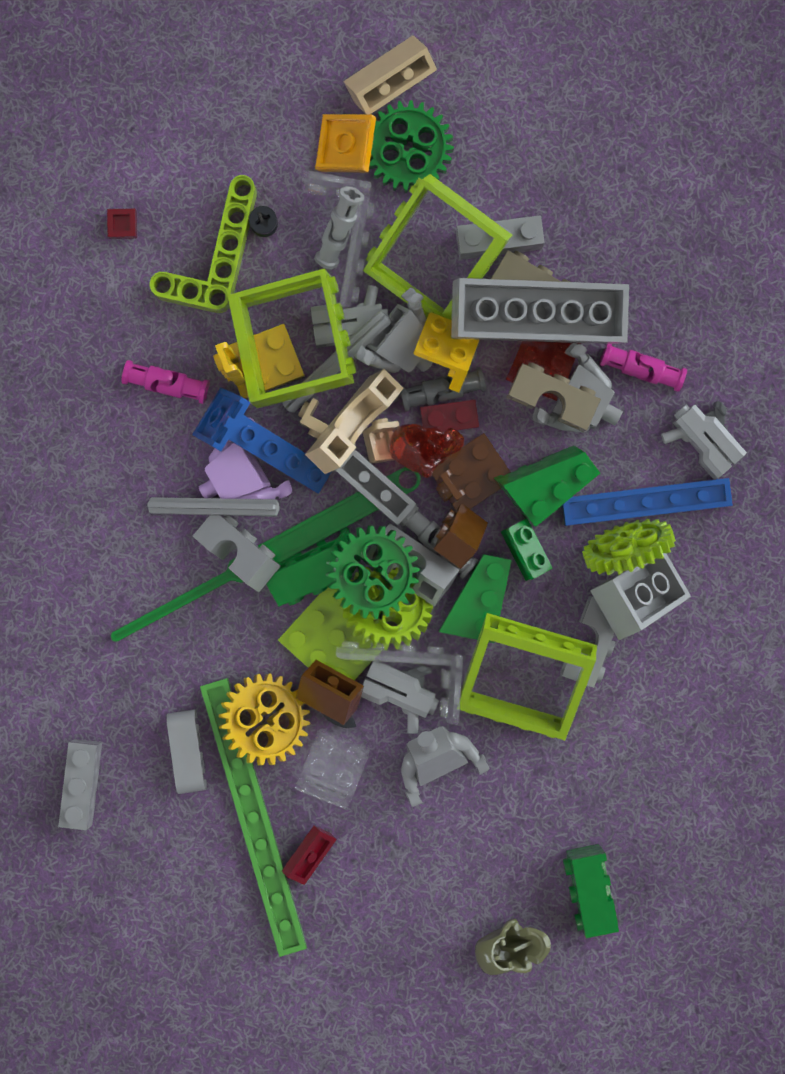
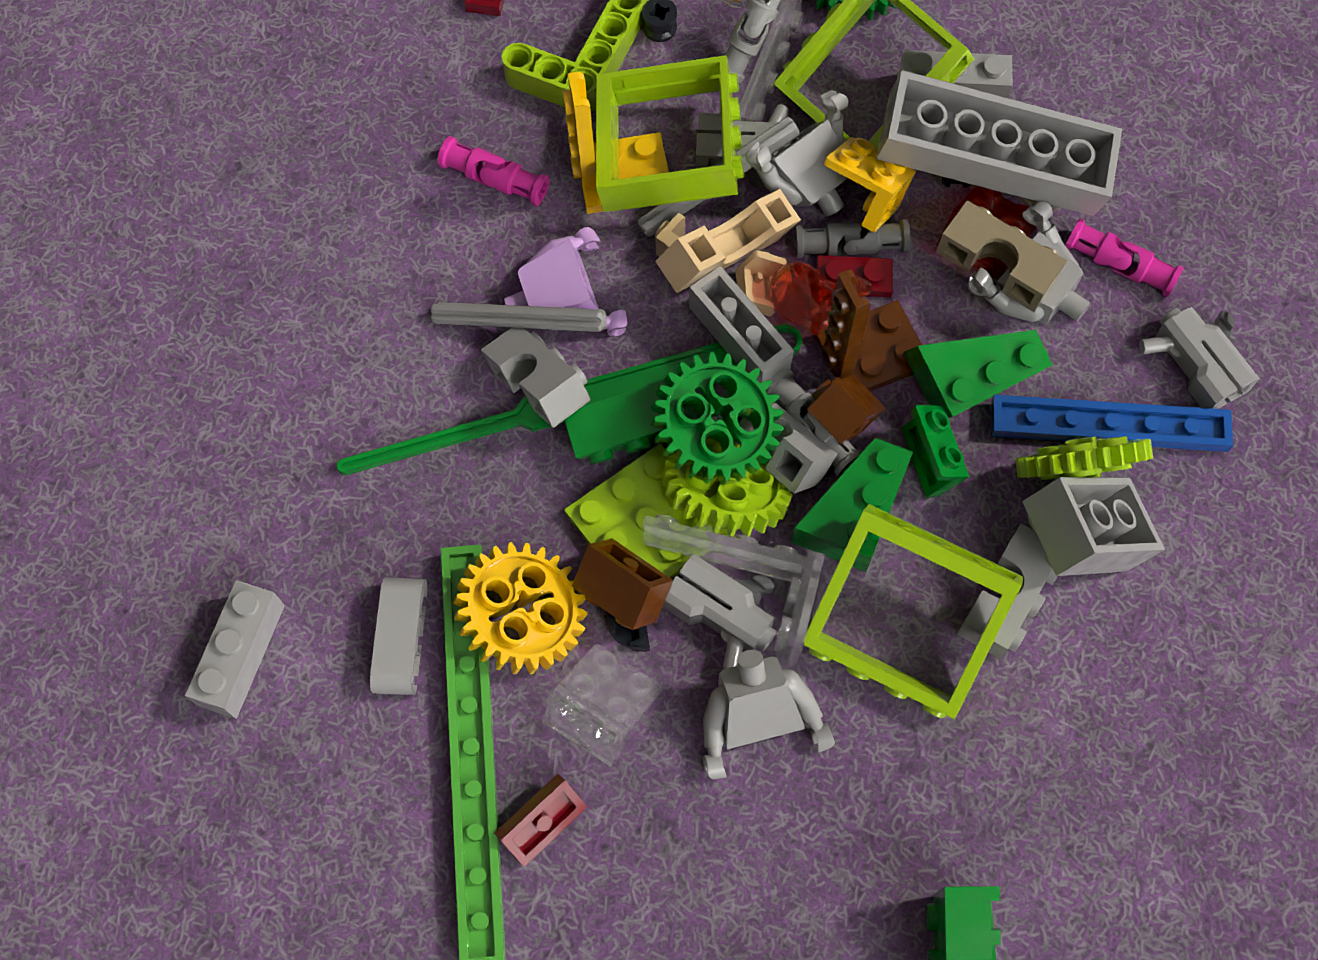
camera: 15 degrees right, 20 degrees down
(226, 422) = (605, 254): blue bracket -> none

